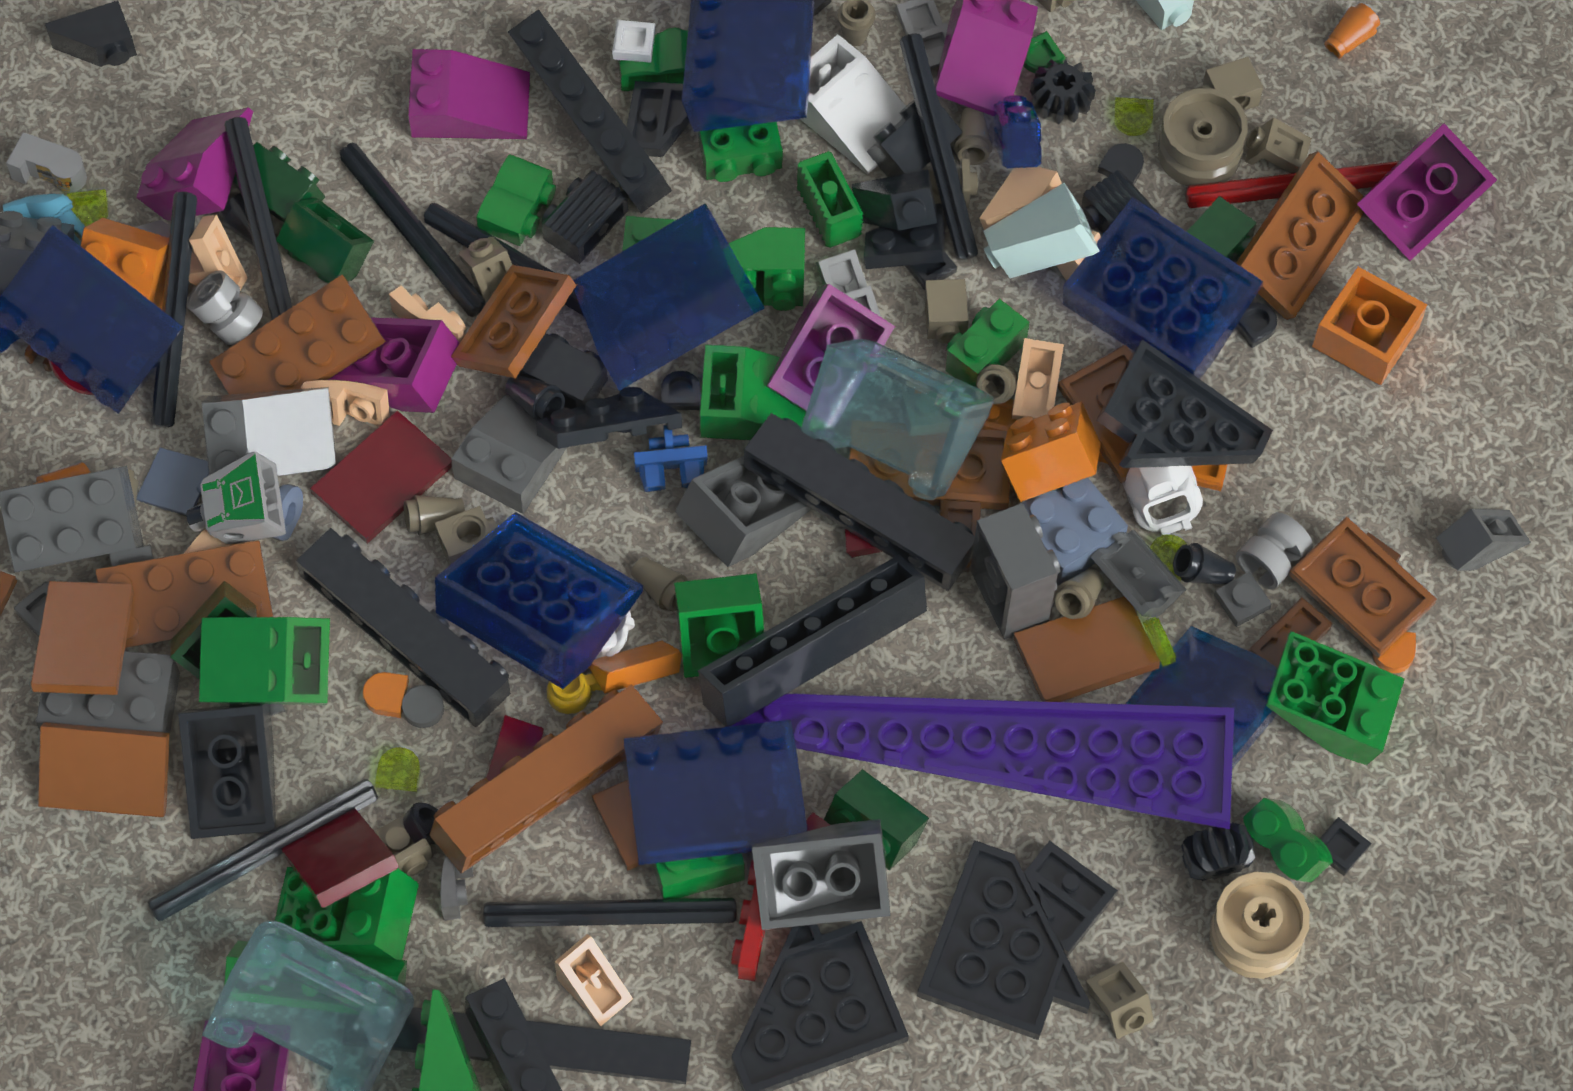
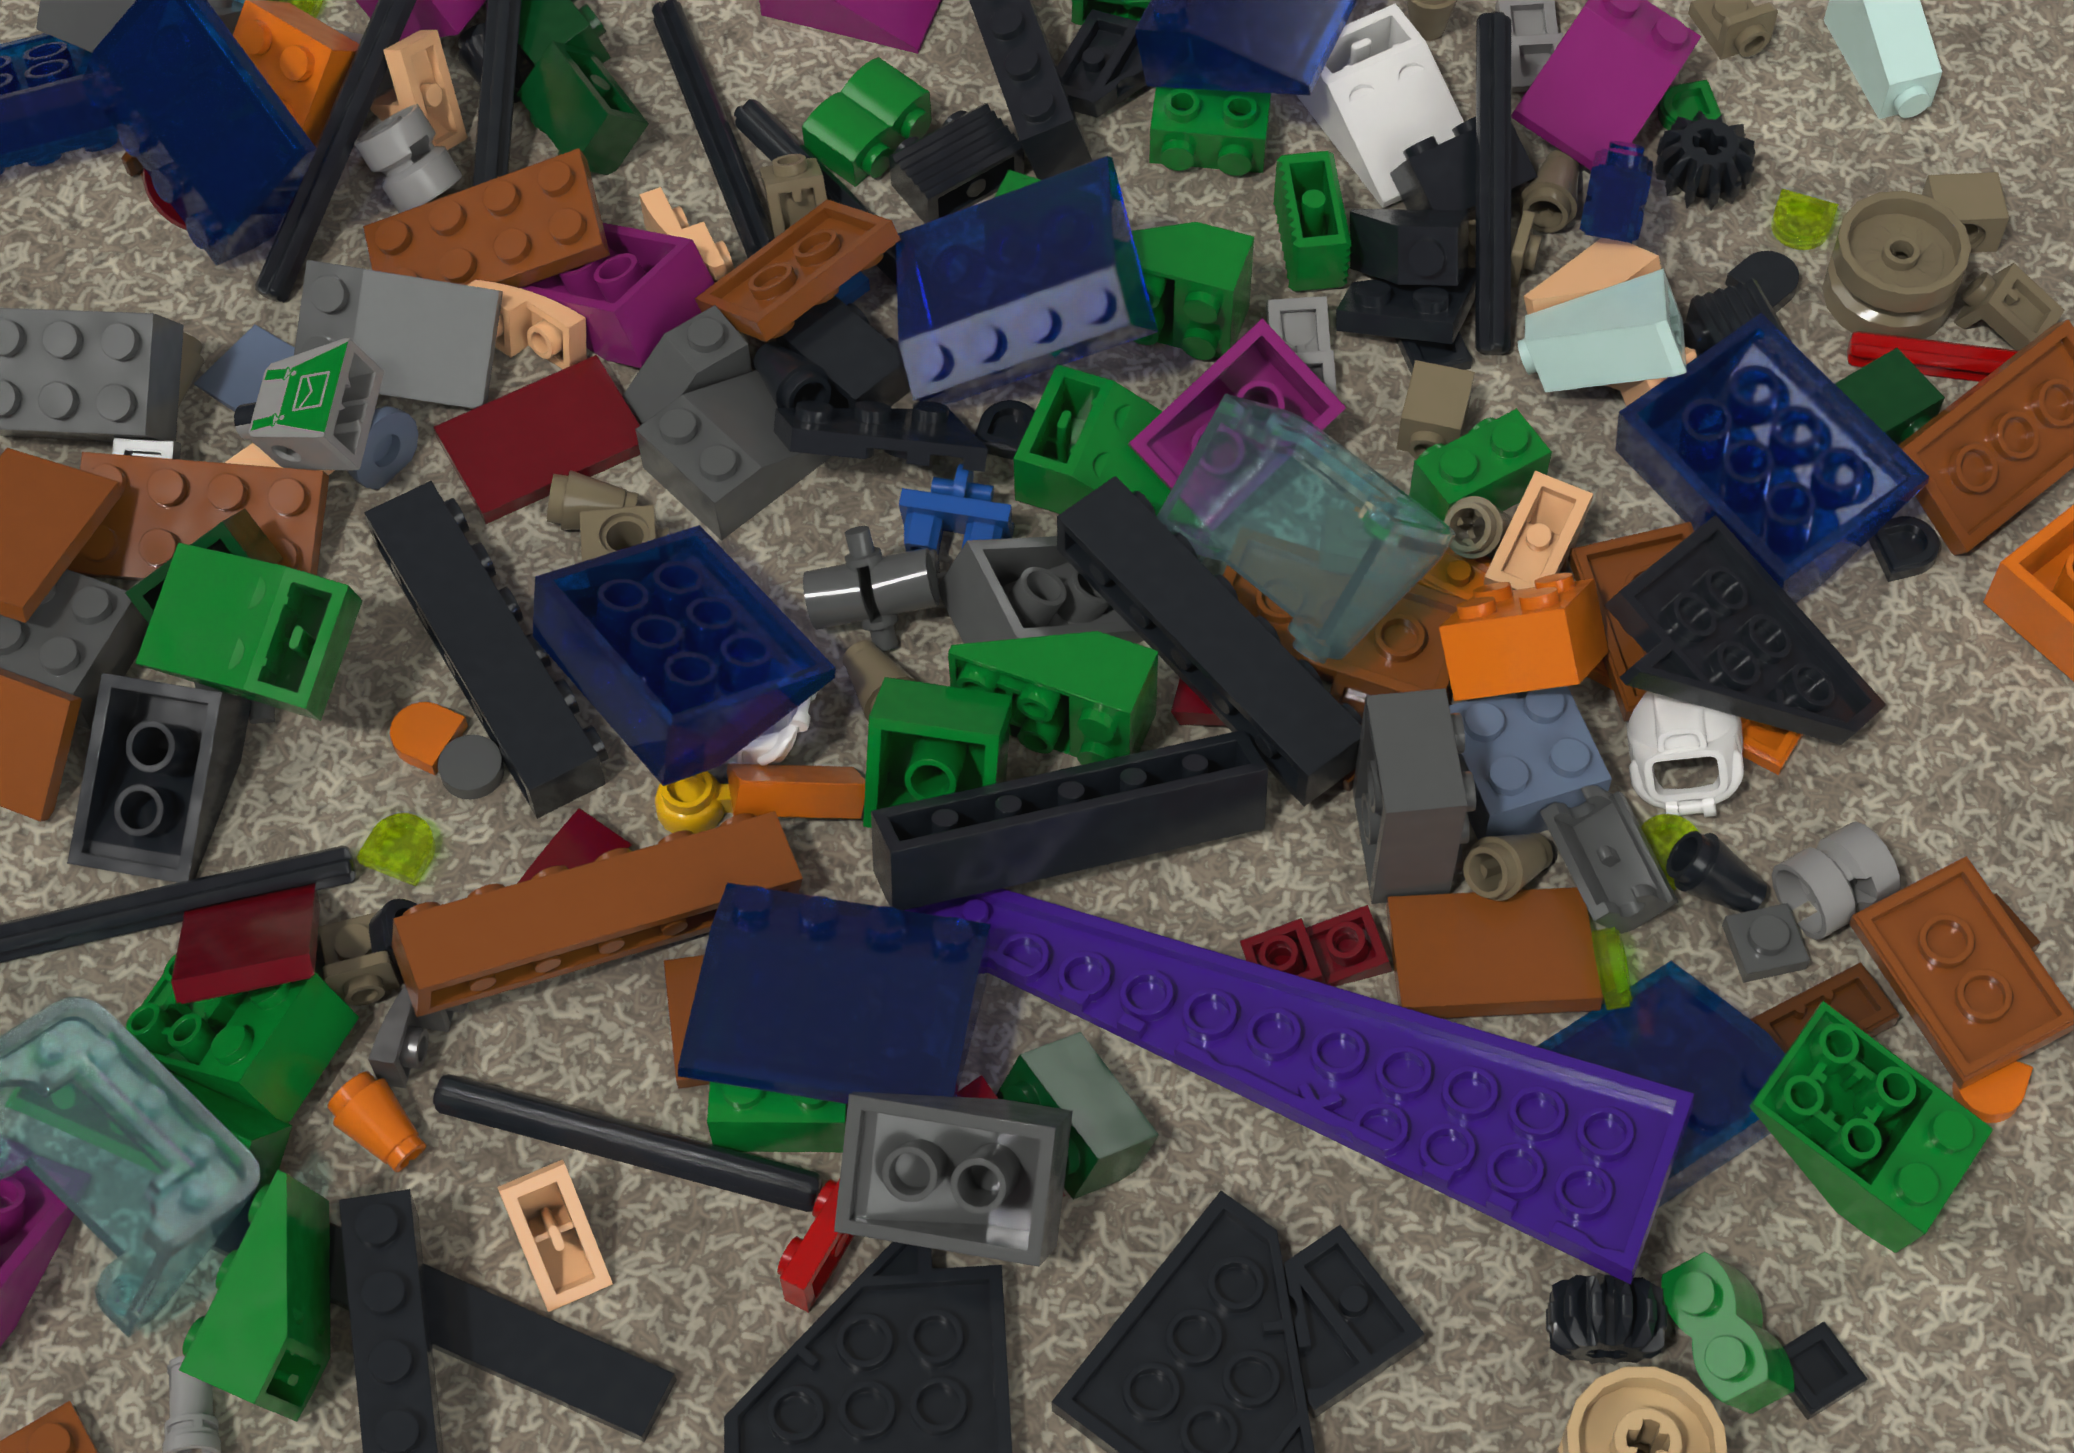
camera: 20 degrees right, 5 degrees down
(455, 943) = (376, 1120): none -> orange cone
(462, 406) = (686, 360): none -> dark grey slope
(637, 522) = (872, 588): none -> dark grey pin
(788, 559) = (1068, 690): none -> green slope
(986, 678) = (1327, 952): none -> dark red slope

